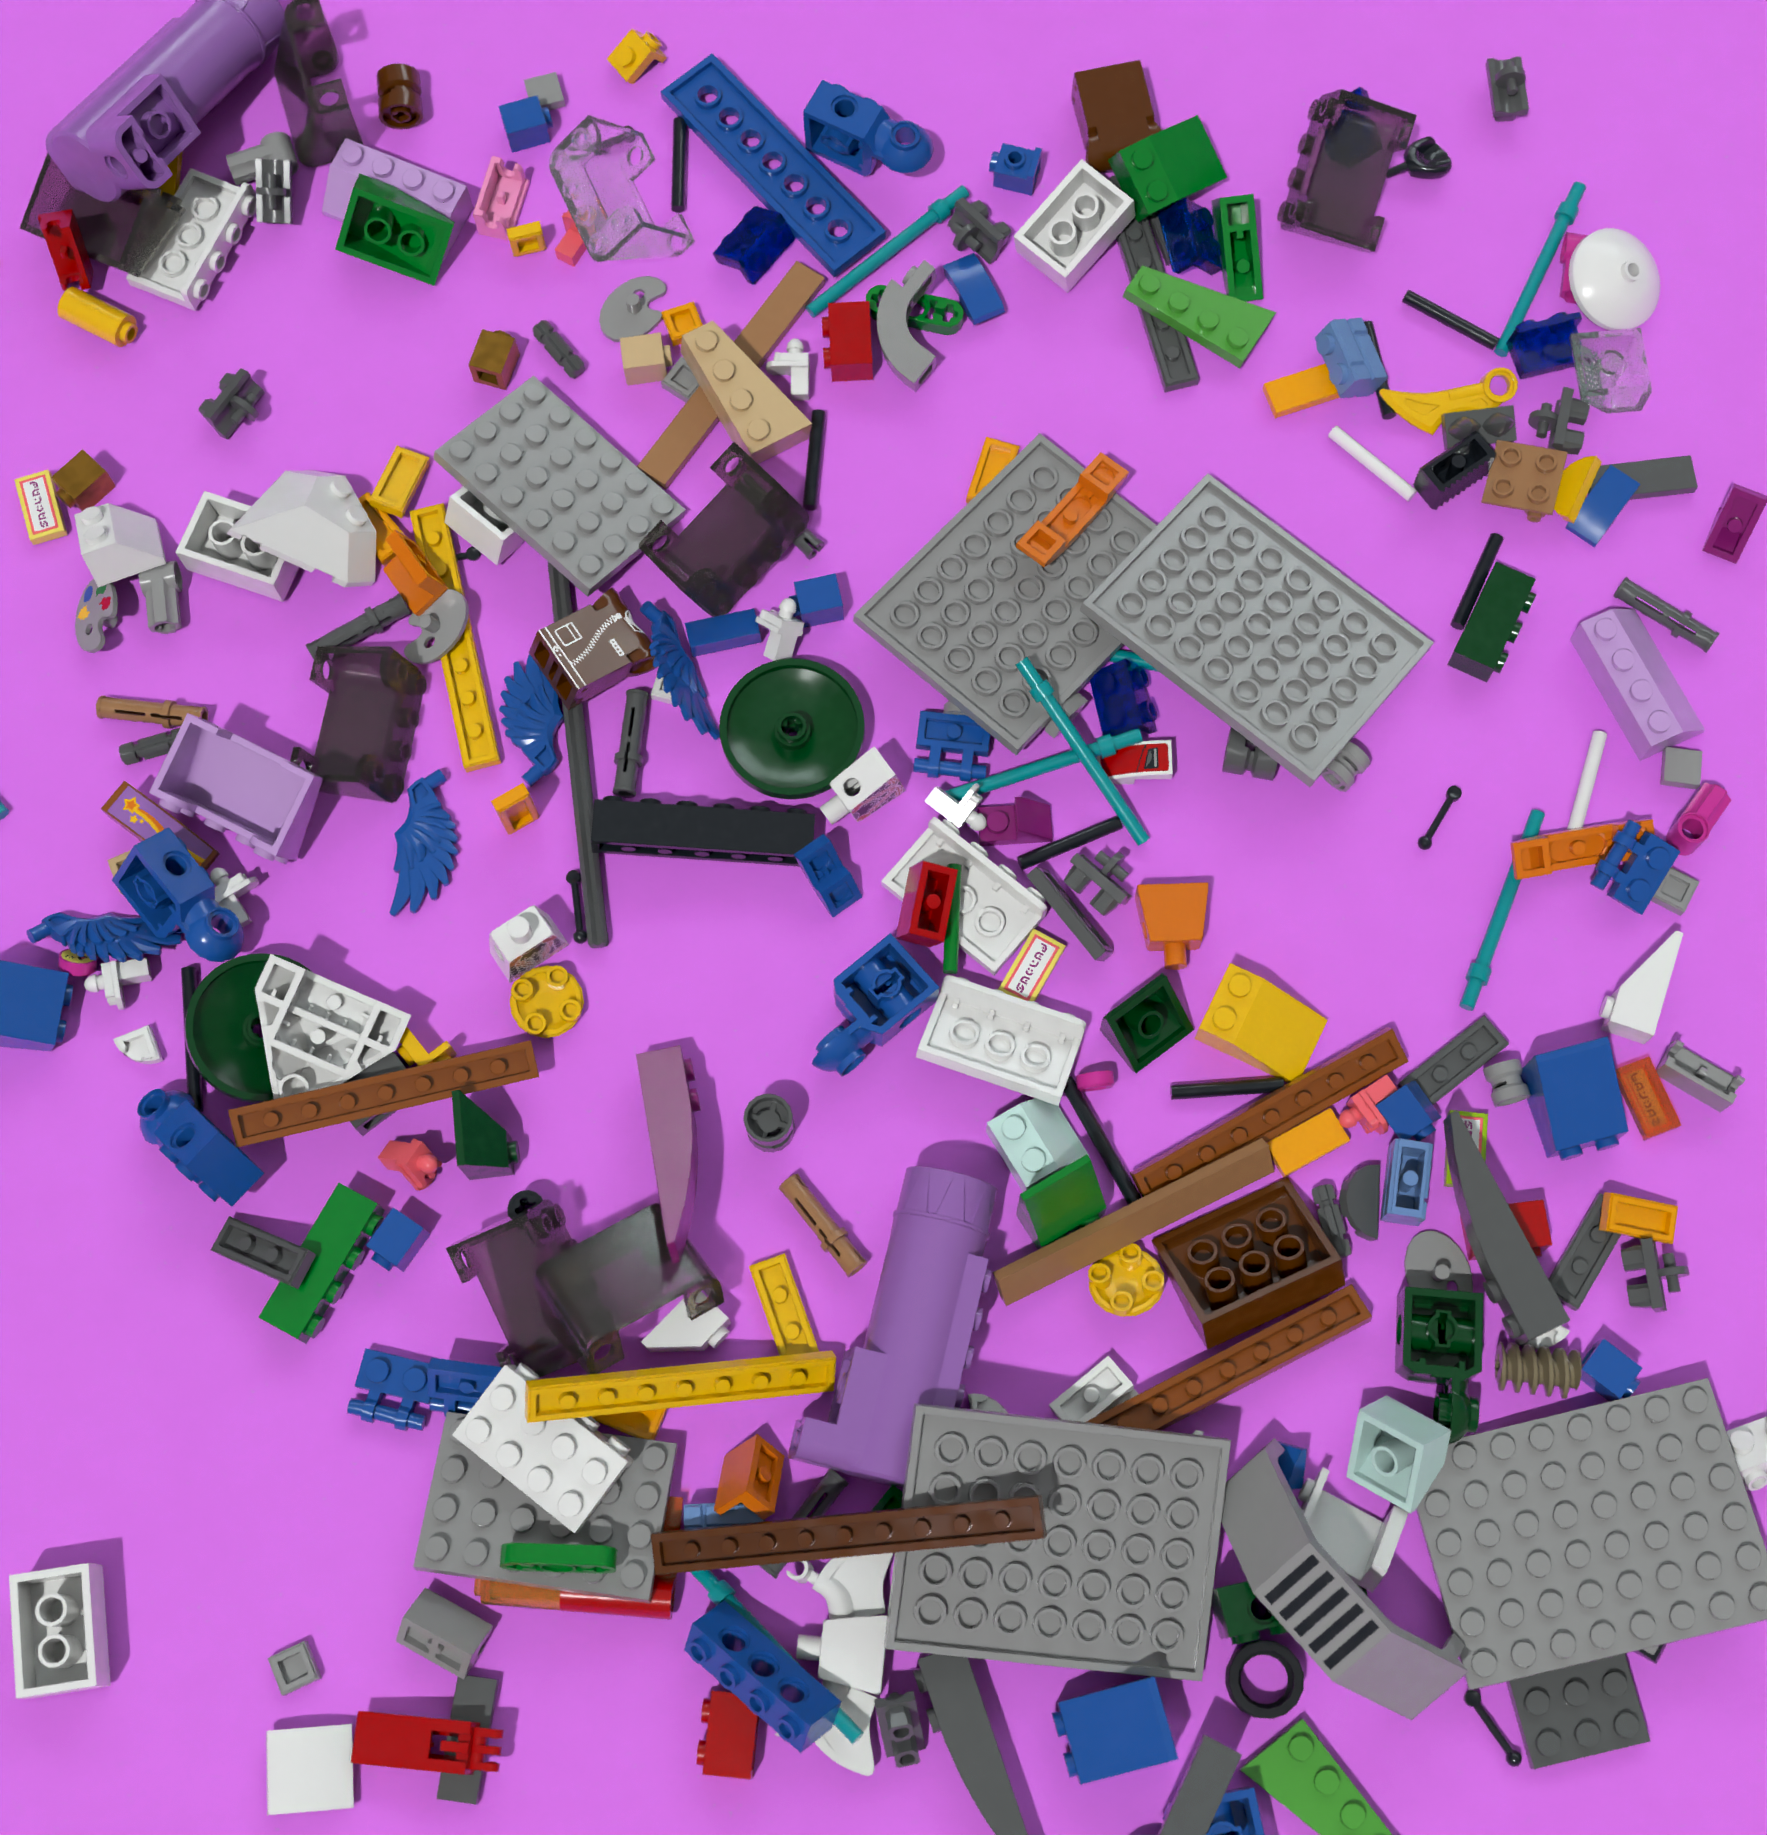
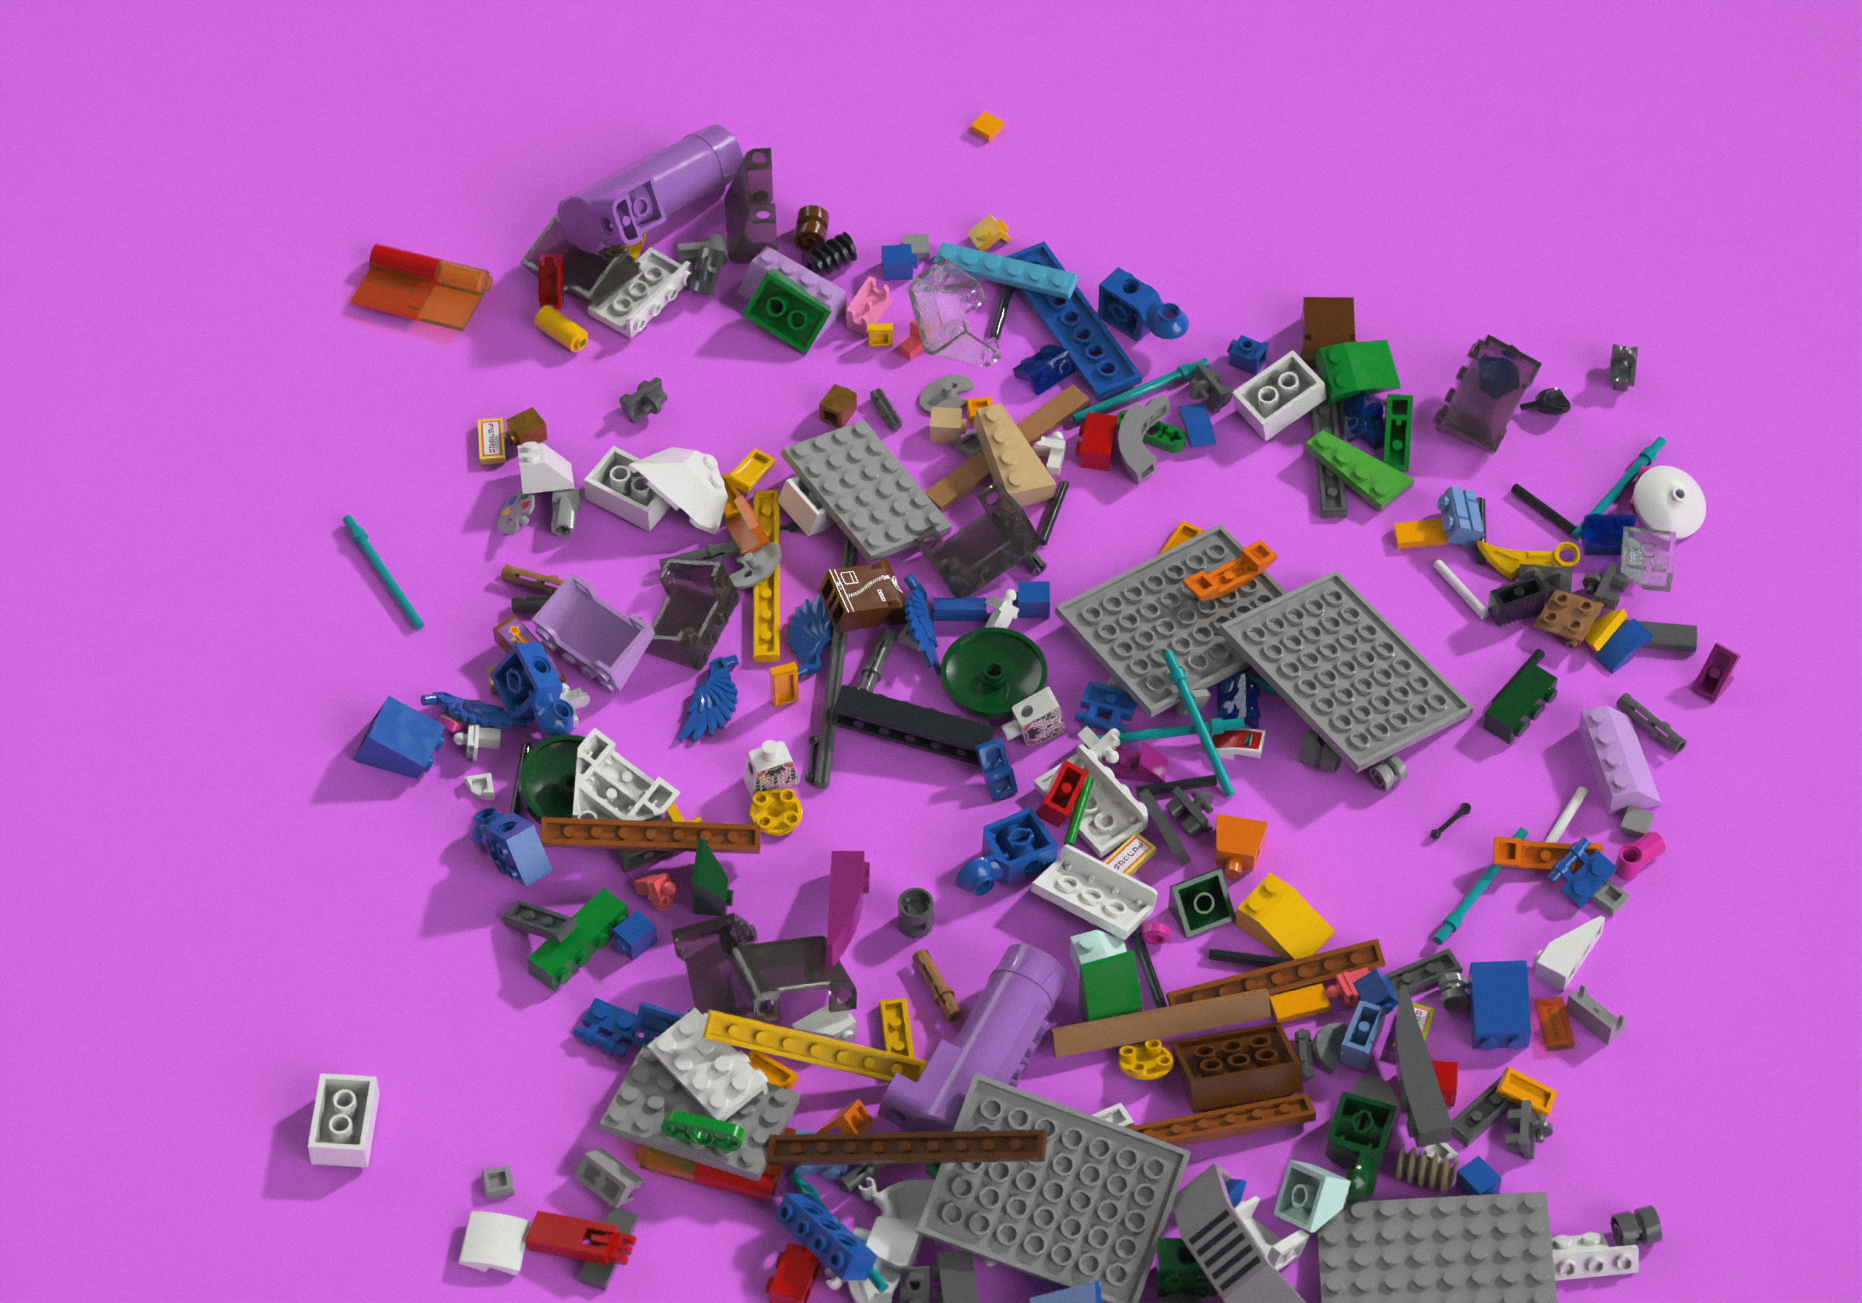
camera: 10 degrees right, 20 degrees down
(432, 132) = (829, 254): none -> black piece
(672, 108) = (1010, 271): none -> medium azure plate

